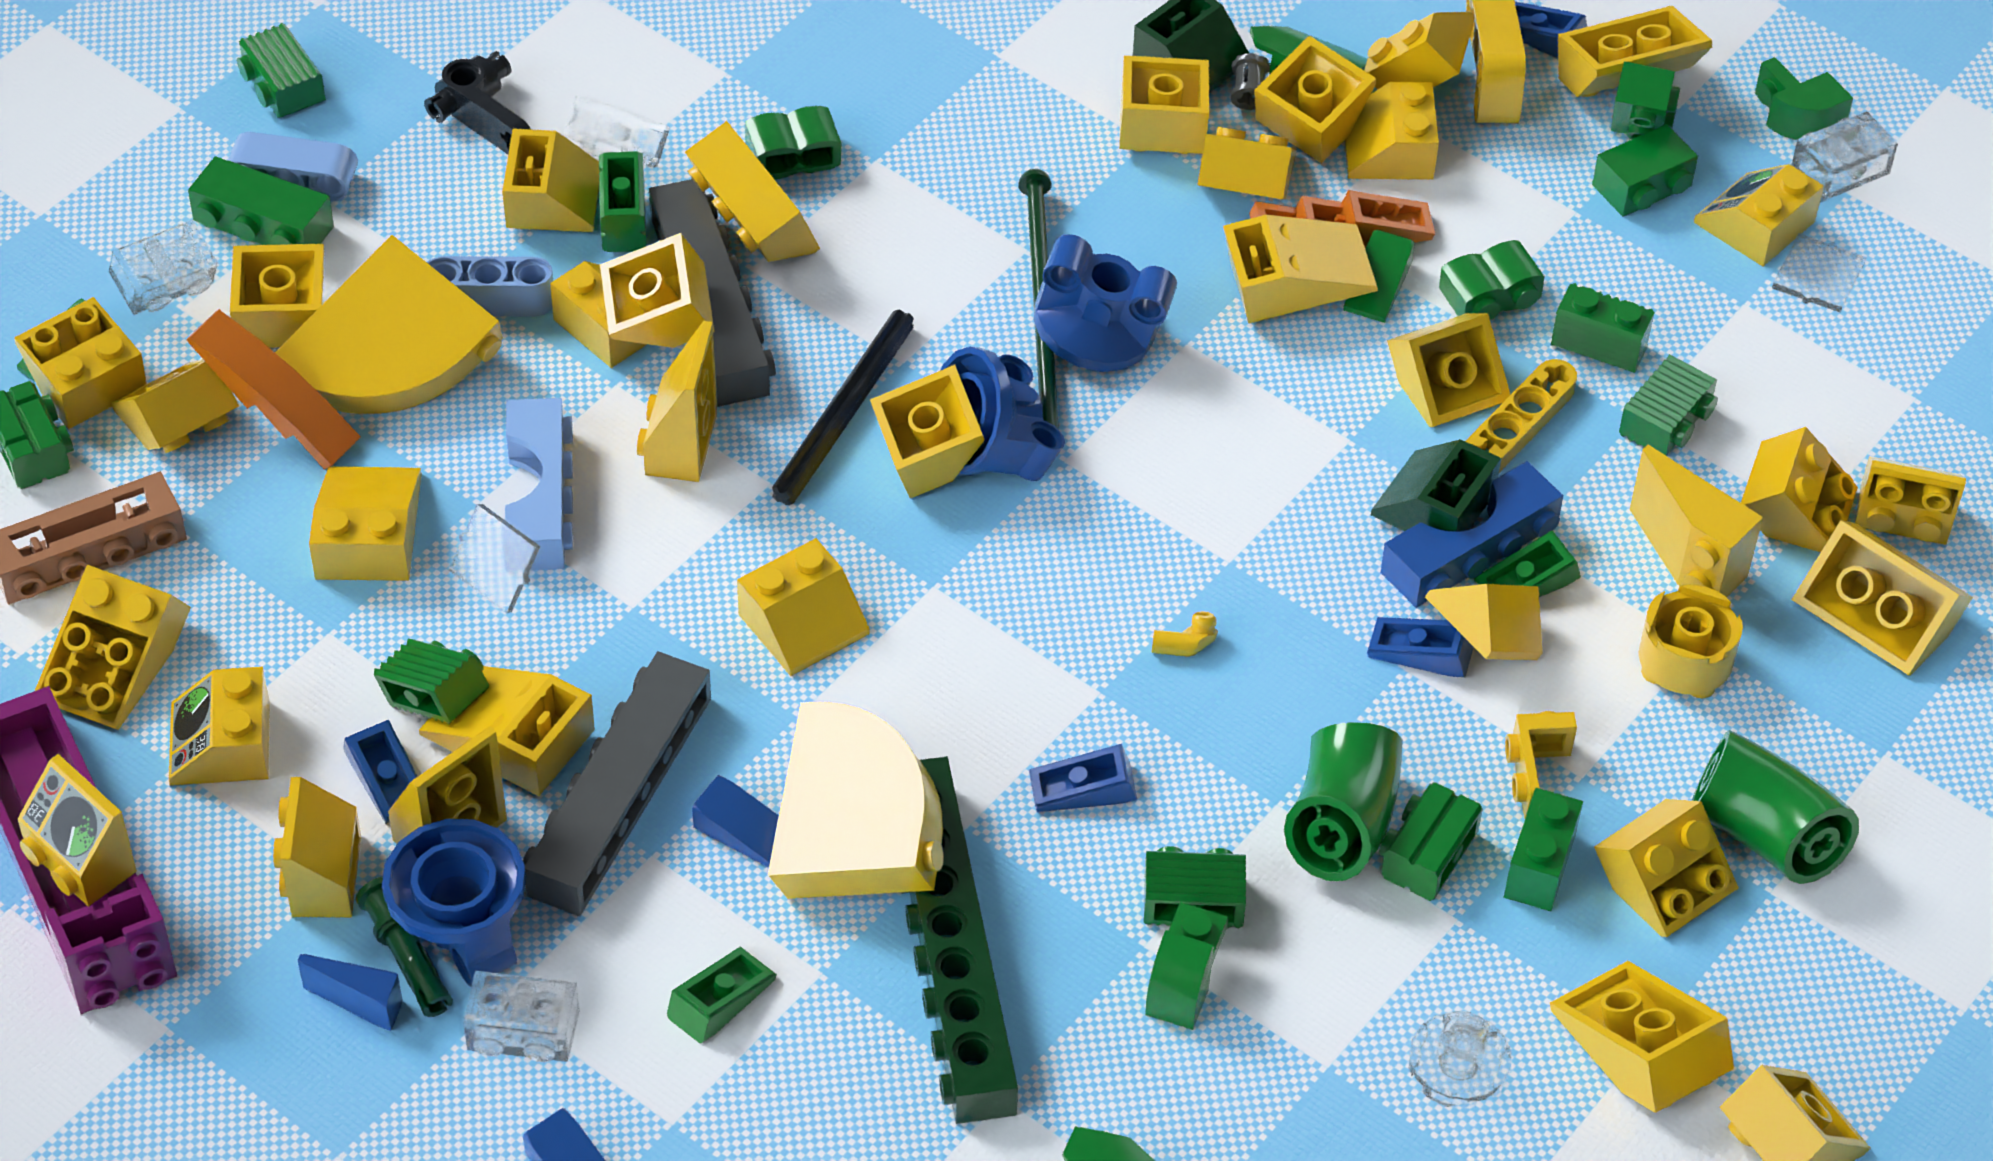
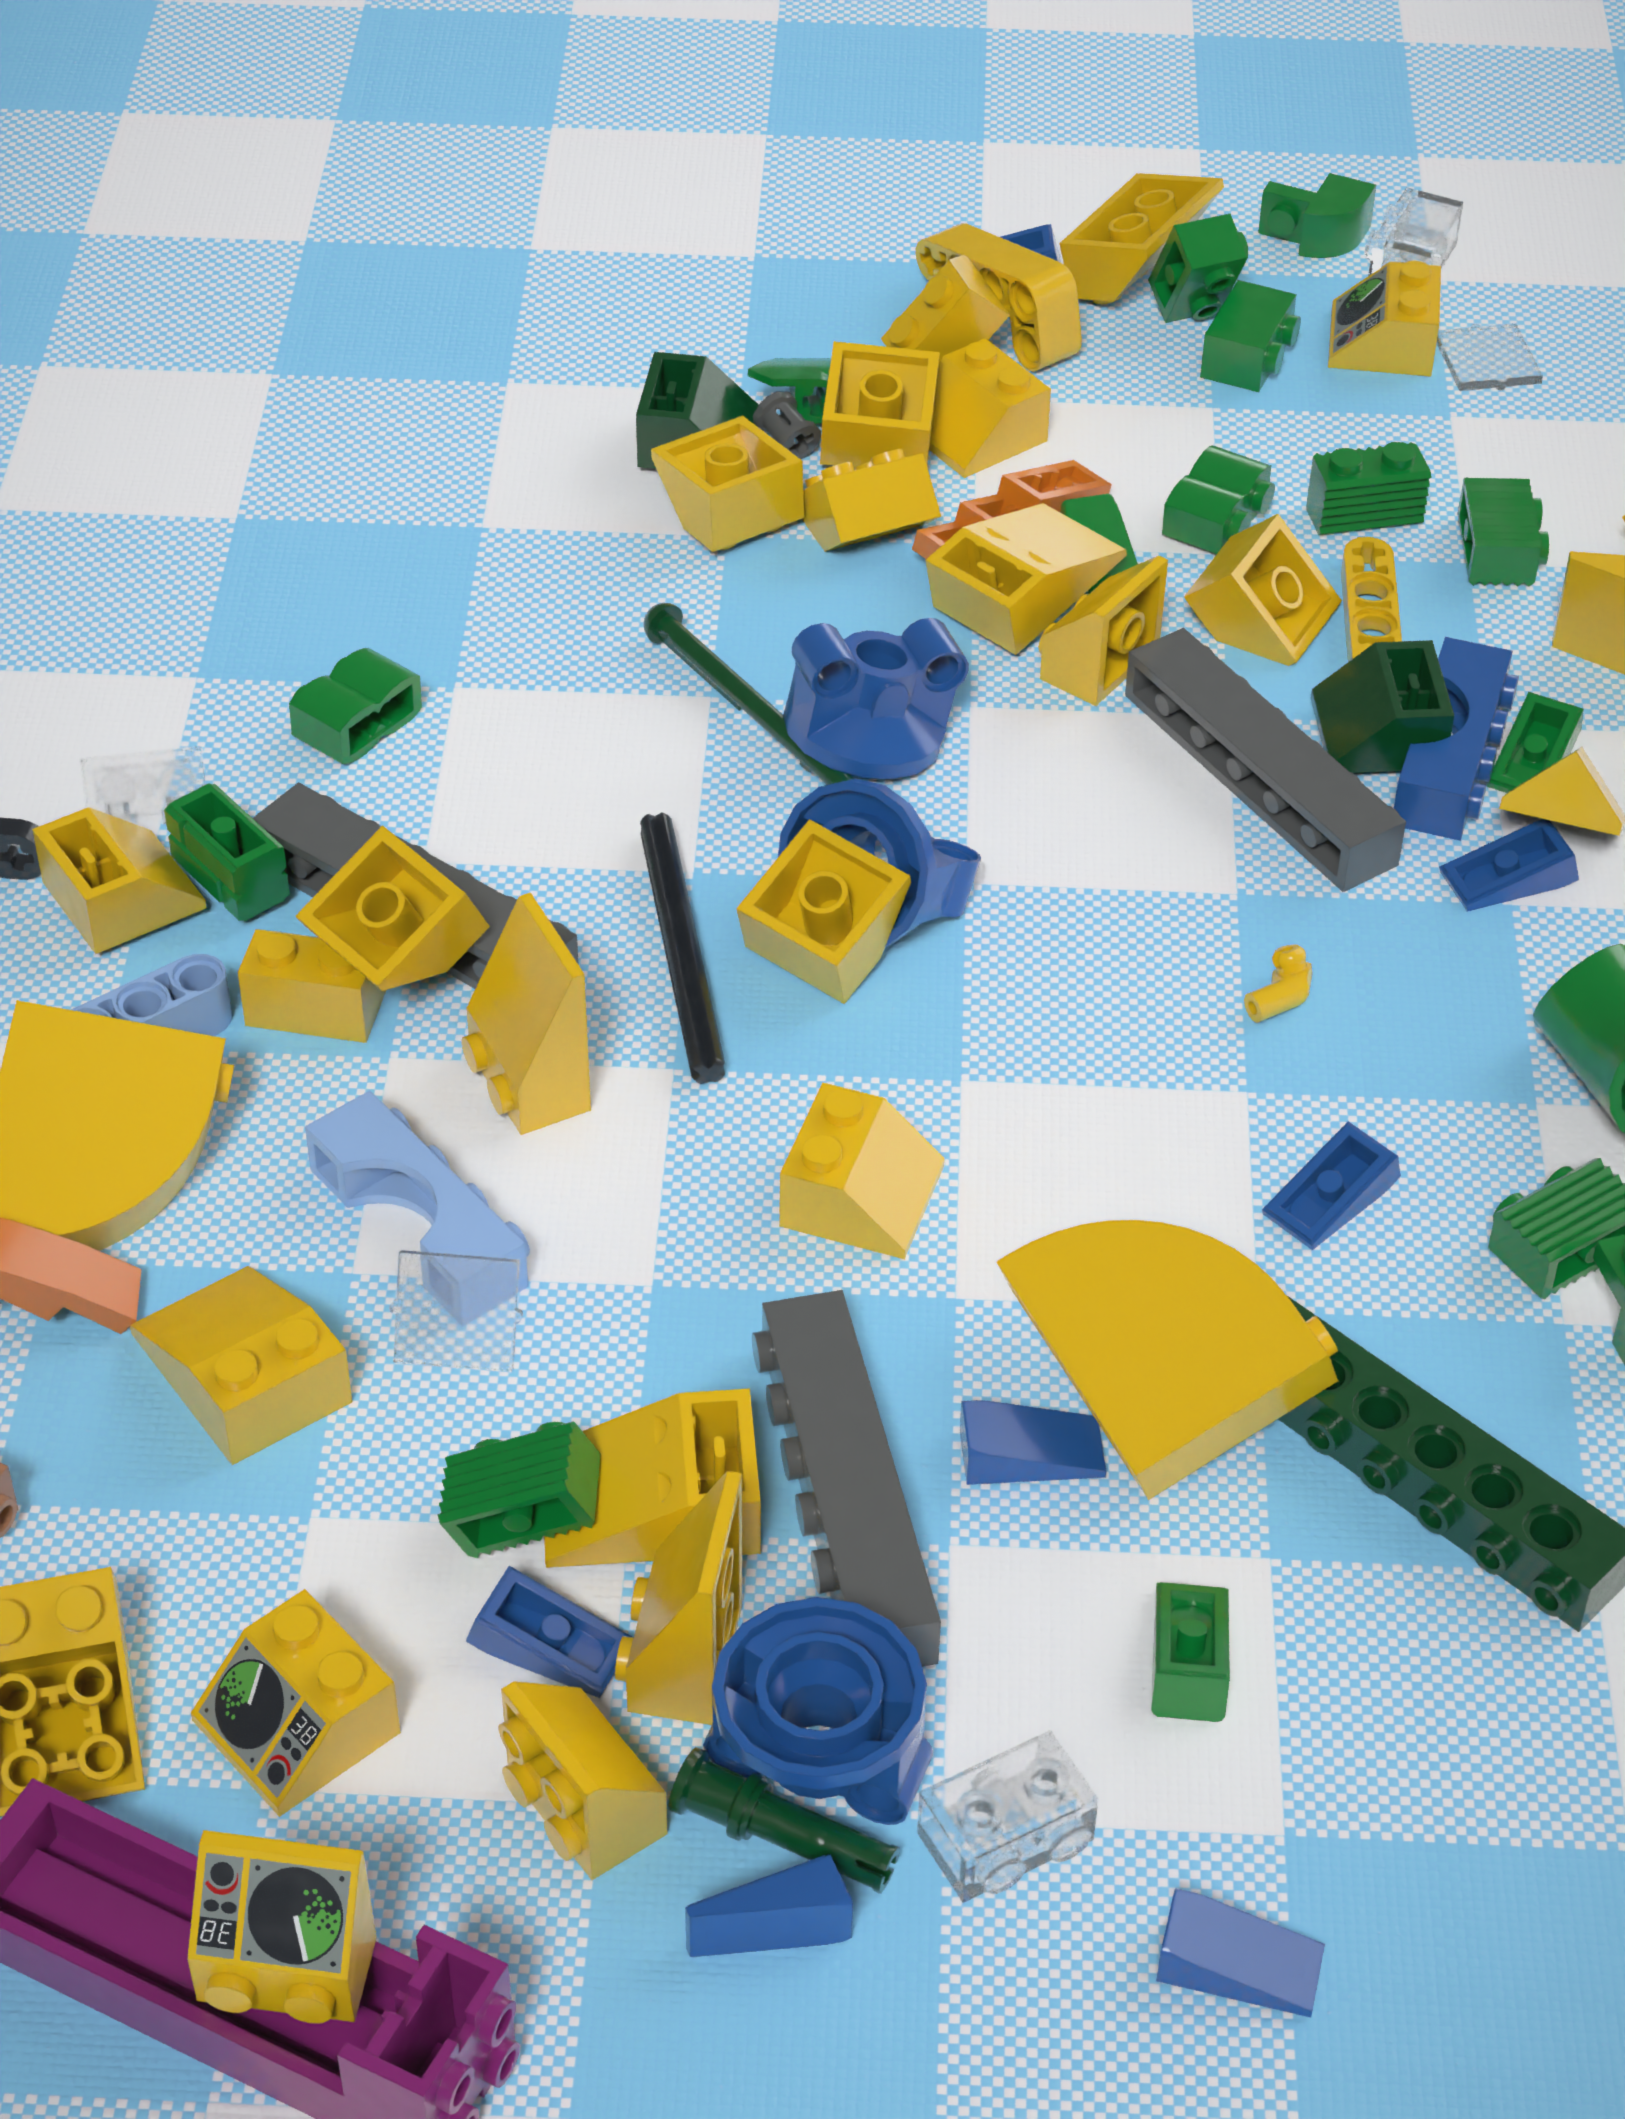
camera: 35 degrees left, 5 degrees down
(749, 196) = (384, 765): yellow slope -> none
(1307, 341) = (1092, 642): none -> yellow slope
(1329, 481) = (1265, 759): none -> dark grey brick

